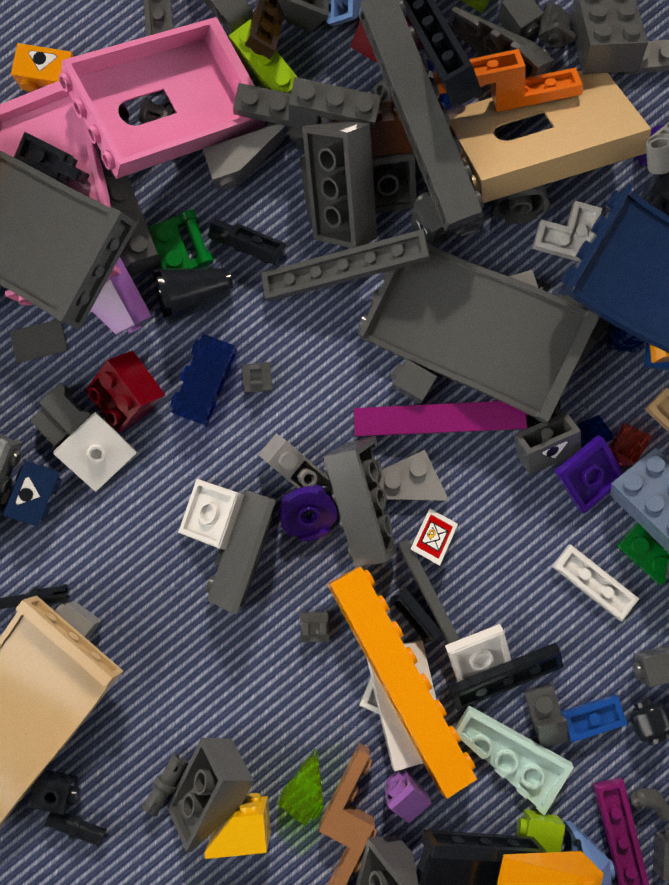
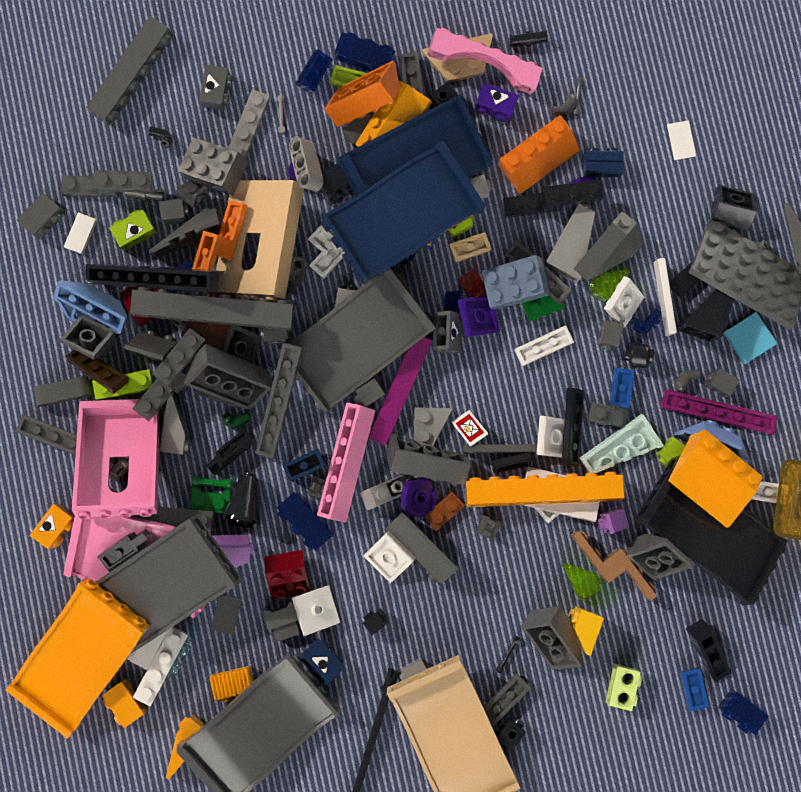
camera: 70 degrees left, 0 degrees up
(76, 828) = (537, 730): black pin -> none
(97, 762) = (506, 698): none -> dark grey plate
(118, 536) = (374, 621): none -> black plate
(135, 734) = (500, 669): none -> black hinge
(165, 784) = (538, 663): dark grey pin -> none
(276, 342) = (304, 465): none -> dark blue brick
(289, 228) = (234, 421): none -> dark green arm
(306, 395) = (346, 462): none -> bright pink brick
(306, 556) = (444, 511): none -> dark orange plate
(330, 59) = (150, 346): none -> dark grey slope

